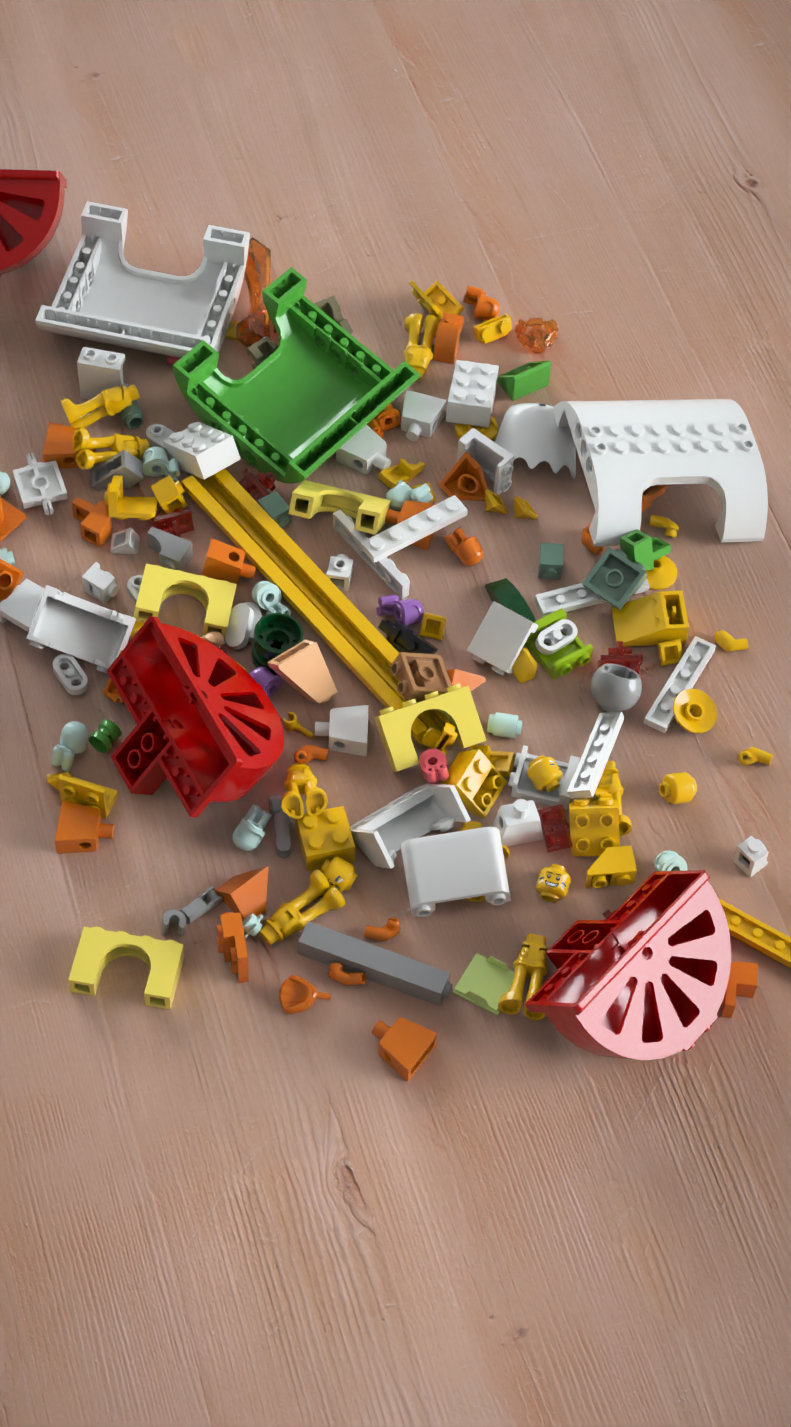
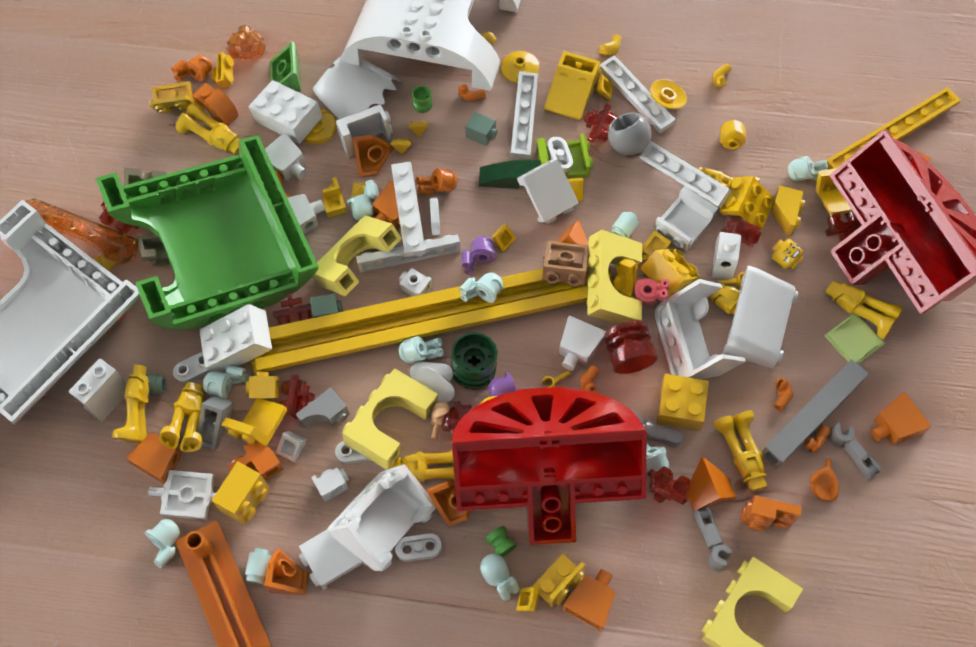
camera: 60 degrees left, 10 degrees up
(55, 516) = (241, 493): none -> yellow brick
(225, 851) = (666, 487): none -> clear red hips
(226, 563) = (366, 370): orange torso -> none
(252, 924) = (745, 492): light aqua plate -> none
(302, 781) = (625, 395): yellow piece -> none
(305, 671) = (516, 347): light nougat slope -> none
(339, 873) = (721, 404): yellow head -> none
(351, 1011) = (854, 450): none -> light grey piece
(359, 621) = (486, 288): none -> light aqua piece
(359, 768) = (630, 347): none -> clear red wheel
(405, 639) = (513, 261): black hinge -> none
(424, 559) = (435, 219): none -> white tile
(544, 773) = (688, 216): yellow head -> none
(557, 499) = (422, 99): none -> bright green wheel
(615, 578) = (528, 89): sand green plate -> none
(643, 548) = (510, 59): bright green brick -> none
(755, 852) = (812, 109): white brick -> none

